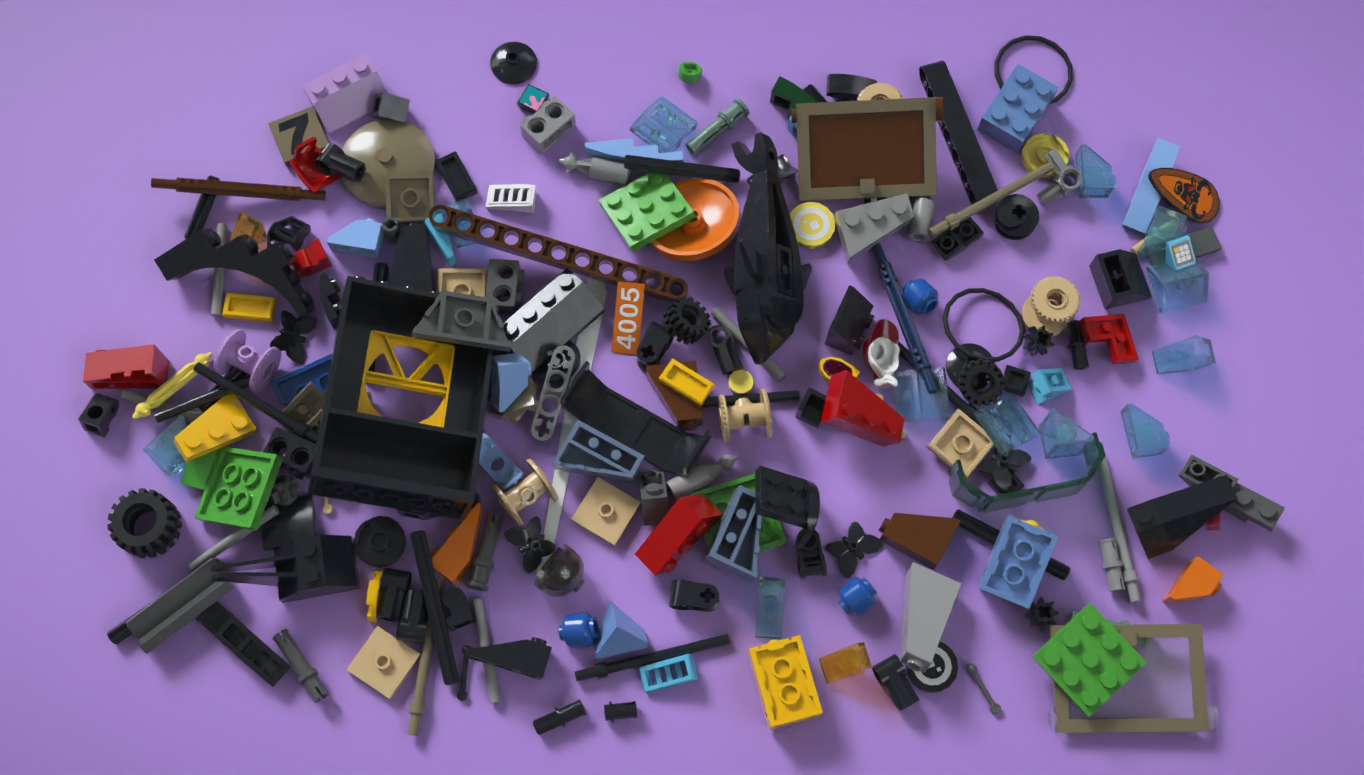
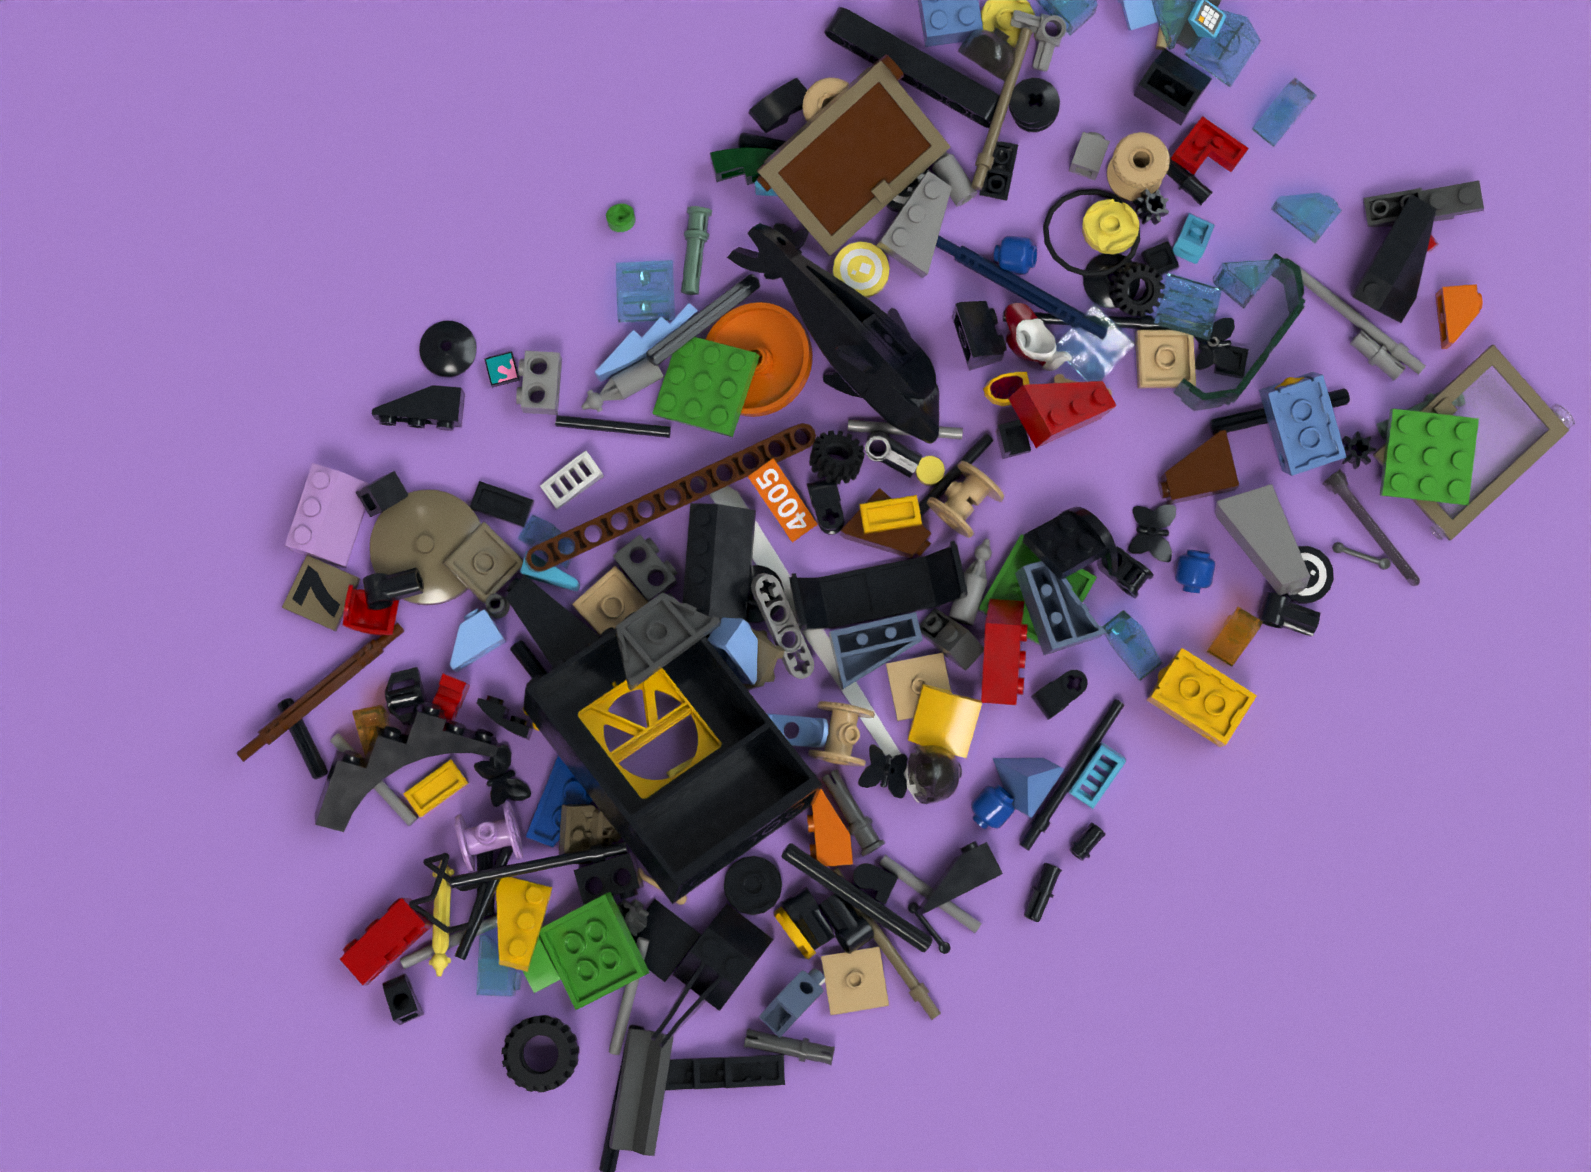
camera: 40 degrees left, 10 degrees up
(201, 343) = (441, 874): none -> black piece
(330, 635) = (793, 1001): none -> sand blue torso
(470, 83) = (430, 406): none -> black slope
(567, 188) = (613, 426): none -> black bar
(600, 545) = (944, 720): none -> yellow slope
(999, 330) = (1110, 226): none -> light yellow tile
(1008, 626) = (1338, 484): none -> clear smoke piece
(1015, 158) = (990, 51): none -> clear smoke cylinder
(1024, 276) = (1089, 155): none -> light grey brick

